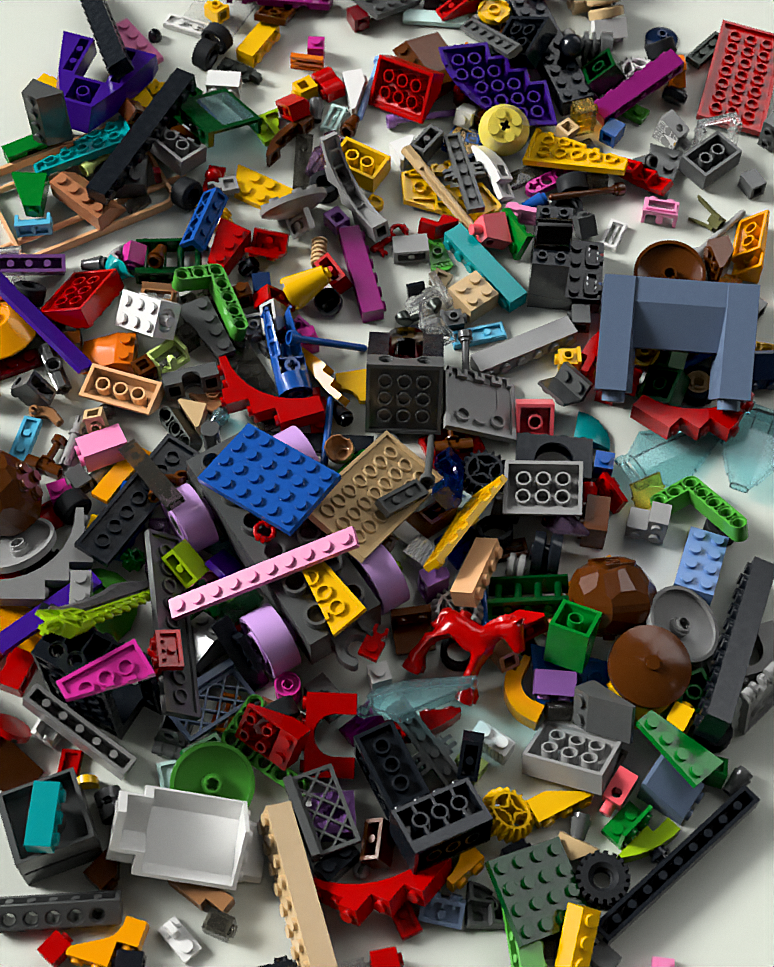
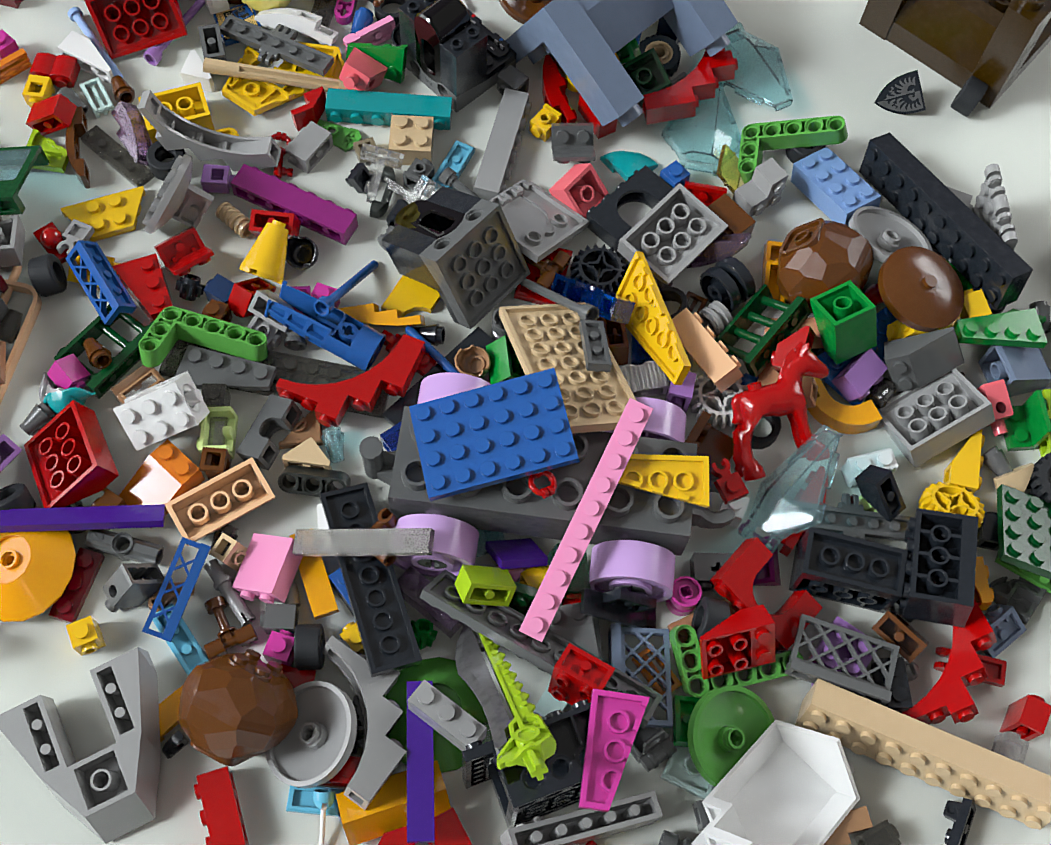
camera: 55 degrees left, 5 degrees up
(50, 415) = (183, 598): none -> blue fence

